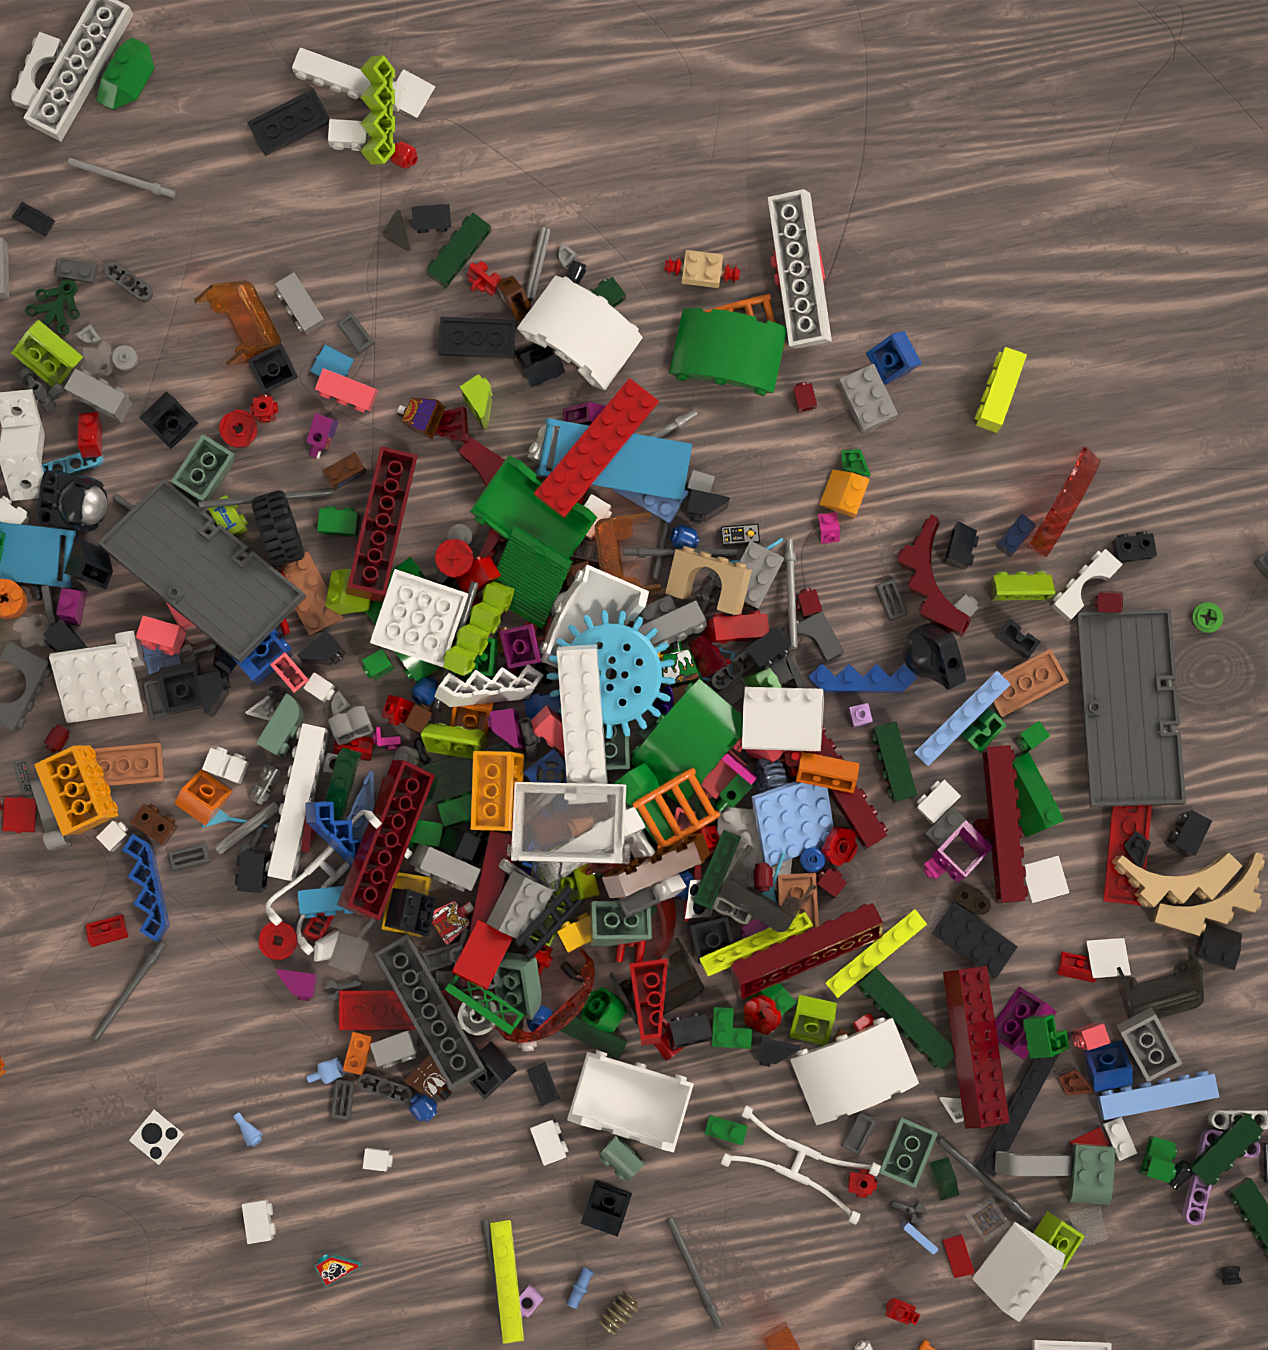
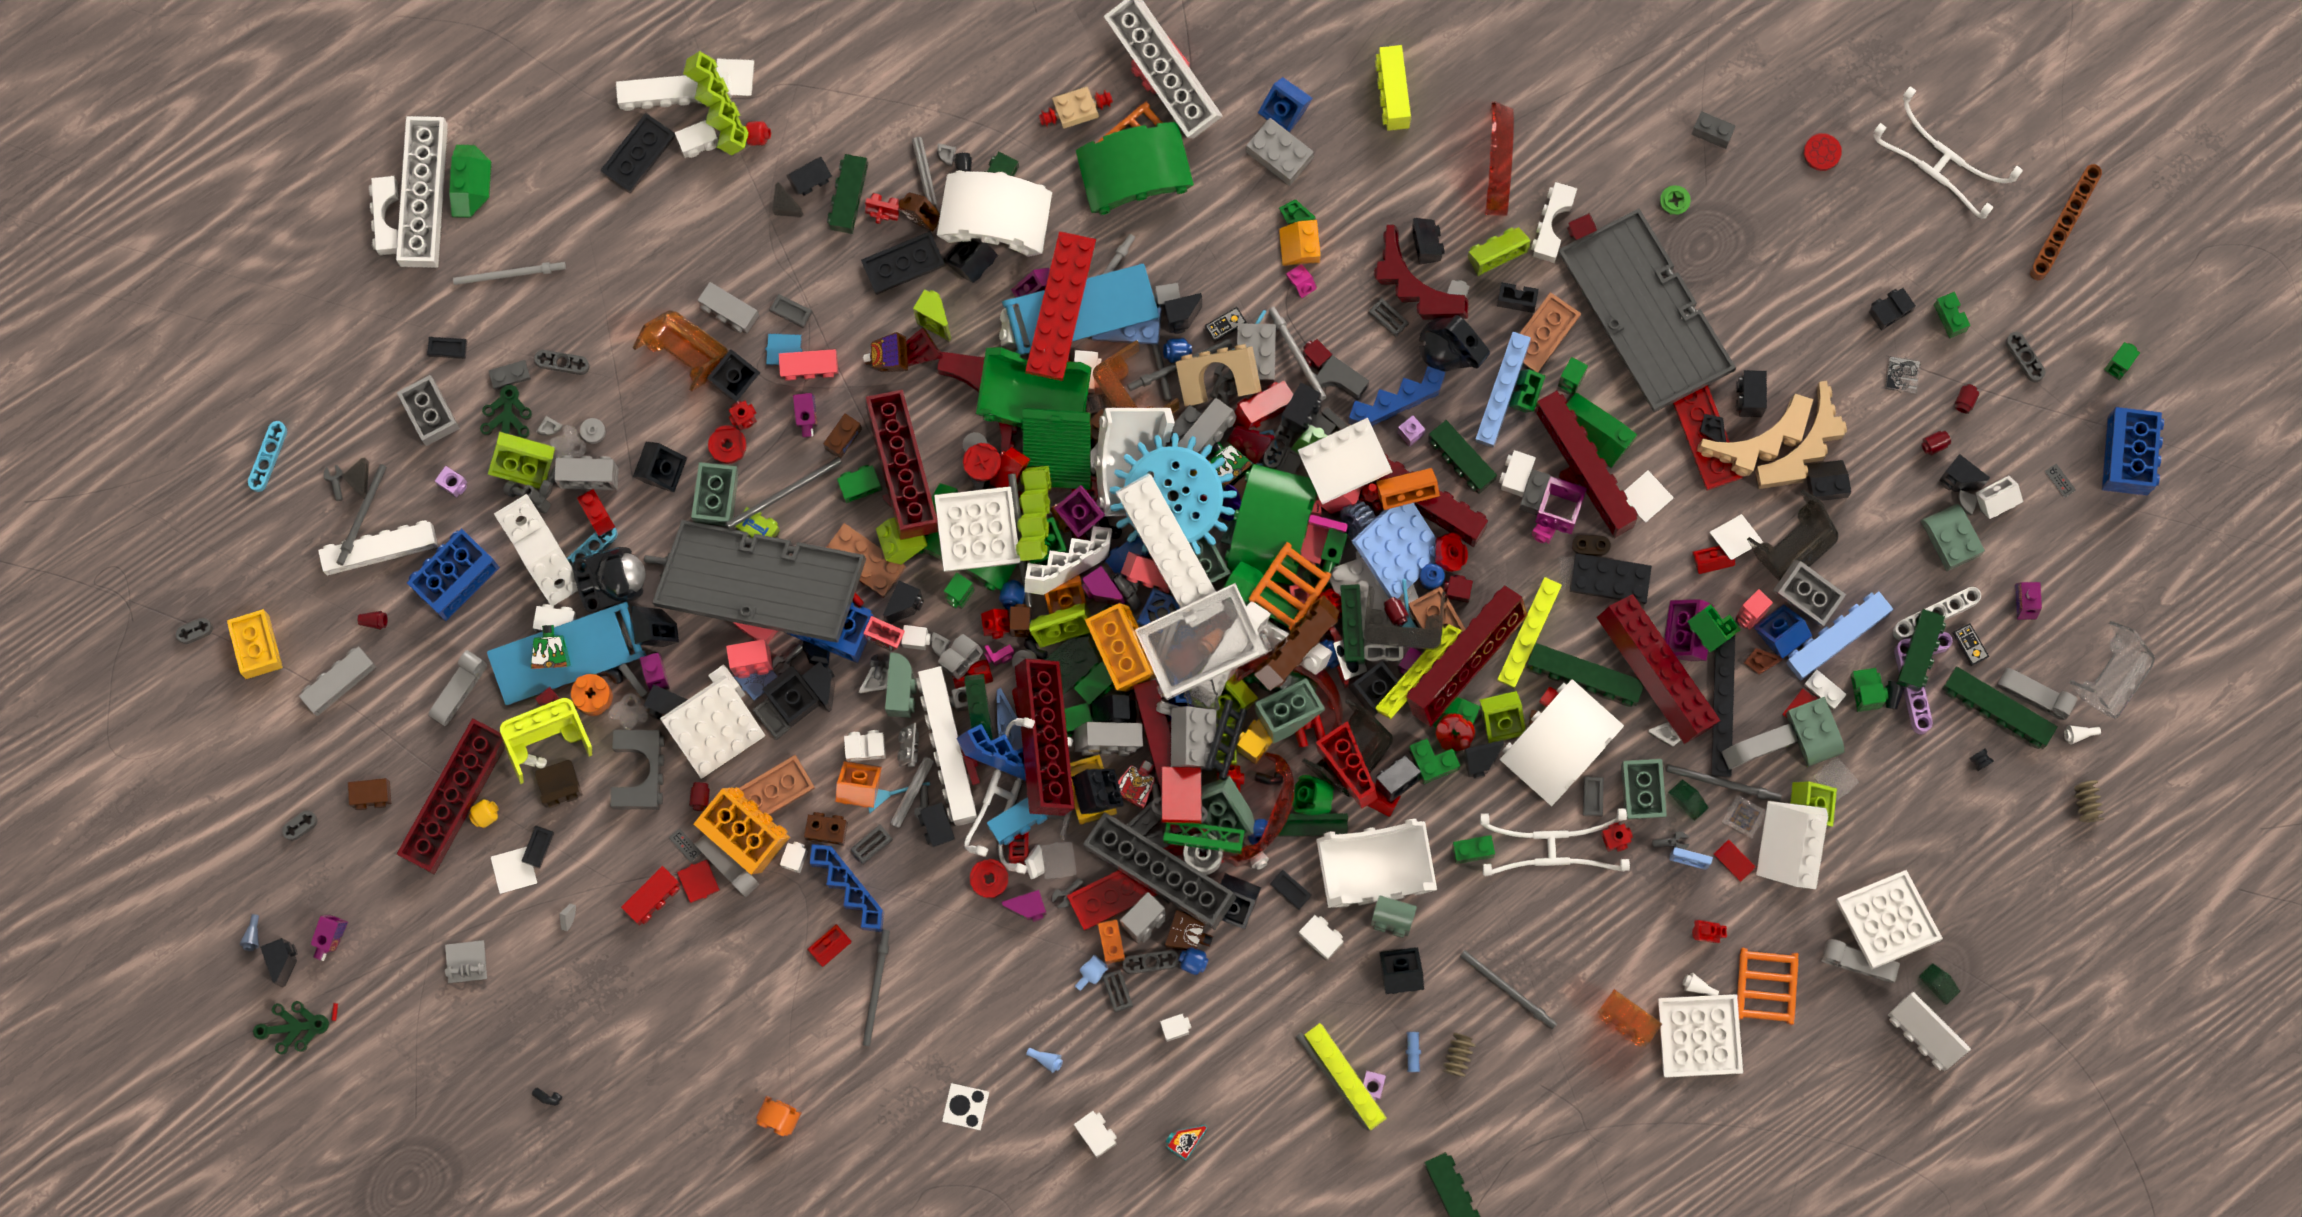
camera: 20 degrees left, 5 degrees down
(277, 528) = (810, 511): black tyre -> none
(638, 901) = (1296, 682): dark grey tile -> none
(804, 397) = (1222, 177): dark red brick -> none
(1016, 535) = (1470, 208): dark blue brick -> none
(1134, 548) = (1580, 169): black brick -> none

